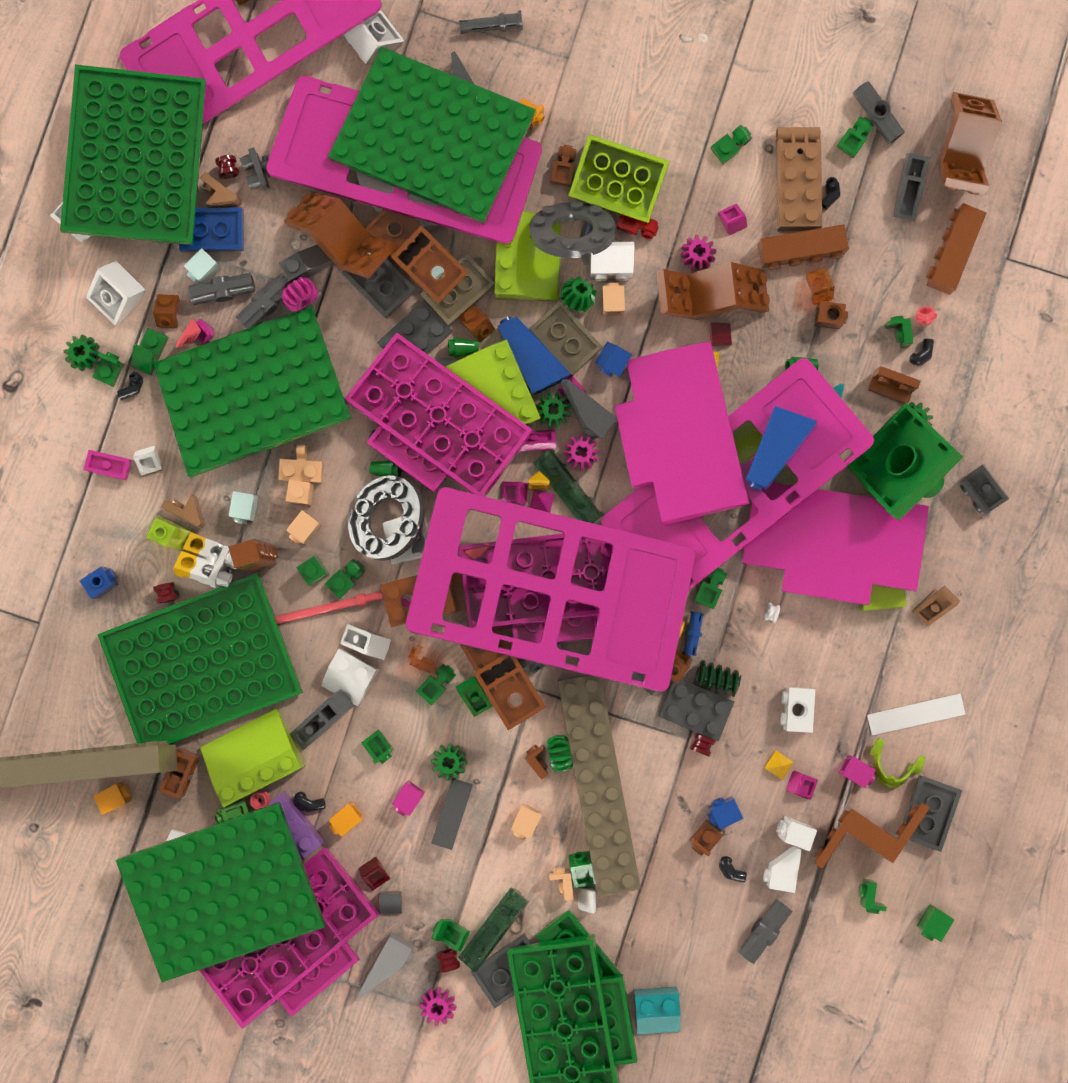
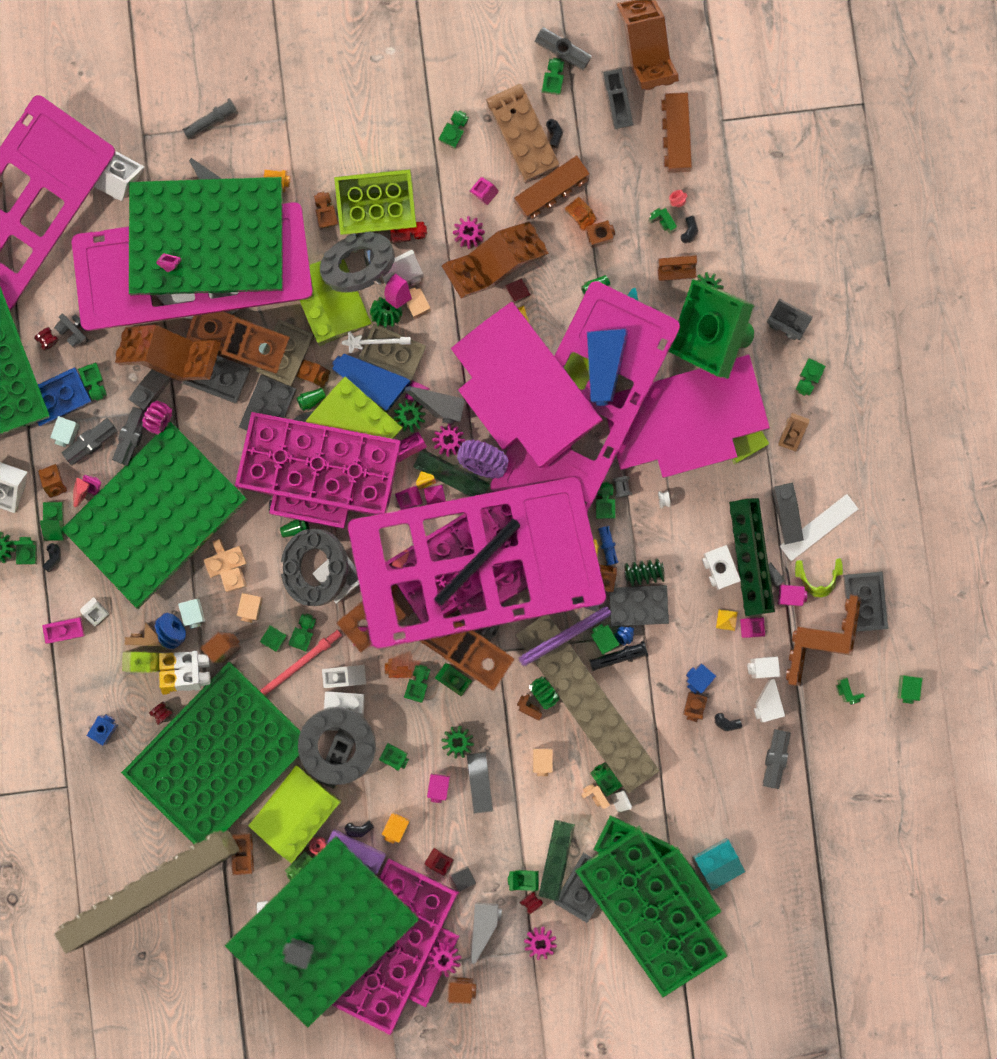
camera: 30 degrees left, 0 degrees up
(112, 797) = (196, 899): light orange brick -> none
(184, 904) = (298, 953): none -> dark grey brick
(212, 514) = (170, 631): none -> blue piece
(221, 196) = (54, 365): medium nougat slope -> none
(254, 224) = (91, 377): none -> green plate
(335, 1018) = (461, 990): none -> dark orange brick
(340, 976) = (440, 954): none -> dark pink gear
(354, 704) = (337, 718): none -> dark grey plate
(381, 141) = (168, 262): none -> dark pink slope
(534, 311) = (355, 342): none -> white piece
(552, 590) = (476, 562): none -> black axle
(599, 278) = (397, 291): none -> dark pink brick
(606, 706) = (564, 636): none -> medium lavender axle
(607, 487) = (482, 459): none -> medium lavender gear
(613, 359) = (439, 352): blue brick -> none
(646, 726) = (604, 638): none -> green brick
(663, 752) = (628, 653): none -> black pin
(668, 732) = (624, 635): none -> blue plate
(702, 744) = (657, 632): dark red wheel -> none
(735, 580) = (622, 486): none -> dark grey bush
(839, 723) = (752, 556): none -> dark green brick
(848, 741) = (775, 576): none -> dark grey pin
(892, 685) = (788, 513): none -> dark grey slope
(980, 554) = (811, 372): none -> green plate

